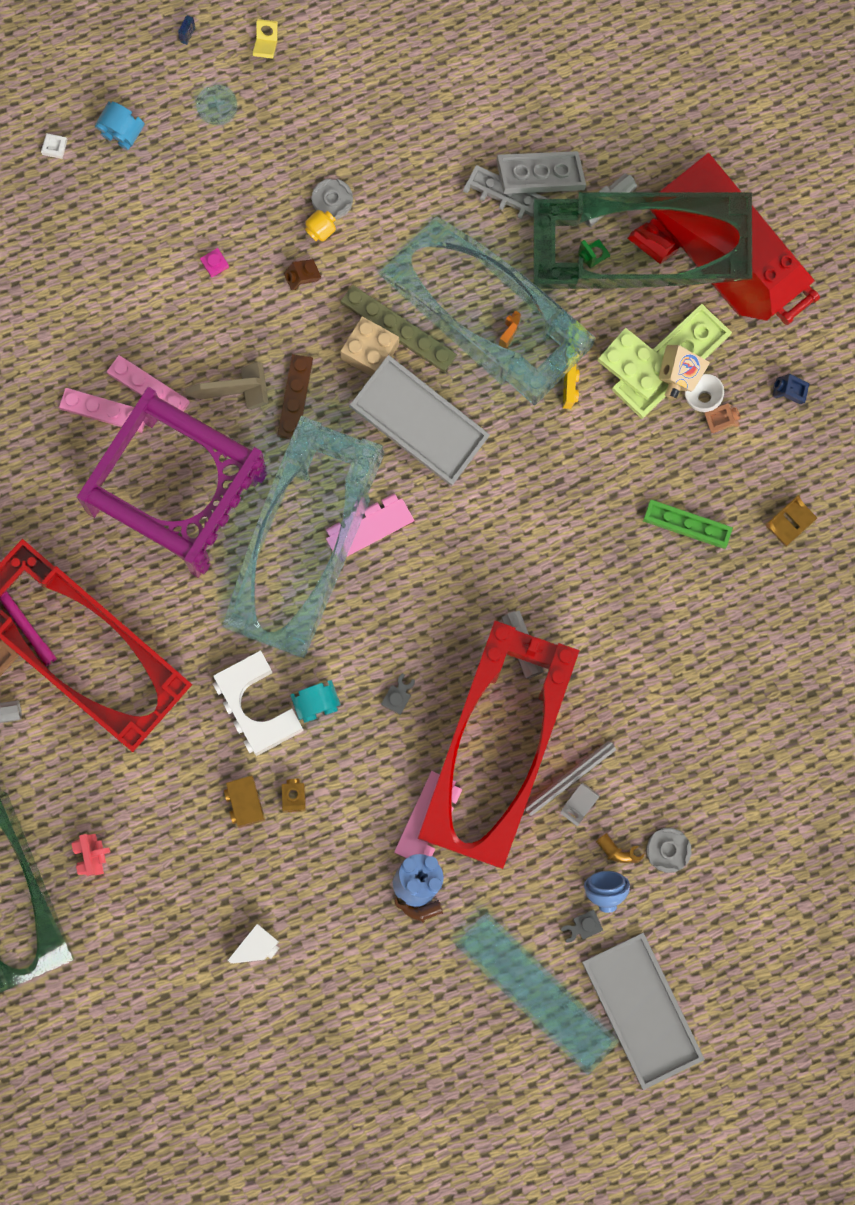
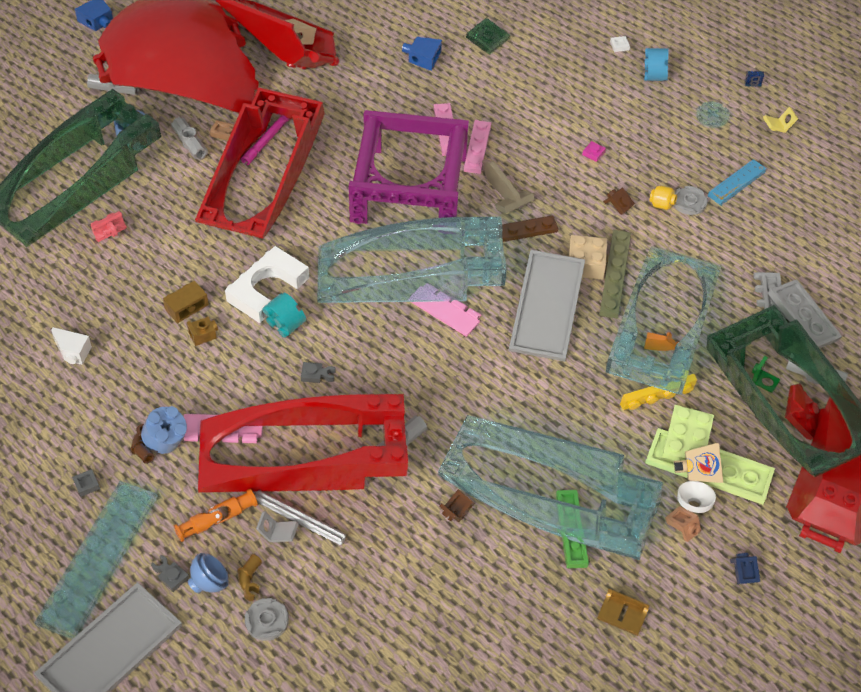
camera: 70 degrees right, 25 degrees down
(328, 135) = (737, 182): none -> dark azure tile
(443, 980) = (86, 482): none -> dark grey plate
(538, 878) = (203, 521): none -> orange piece
(622, 621) = (457, 506): none -> reddish brown bracket
(653, 463) = (590, 465): none -> clear light blue windscreen

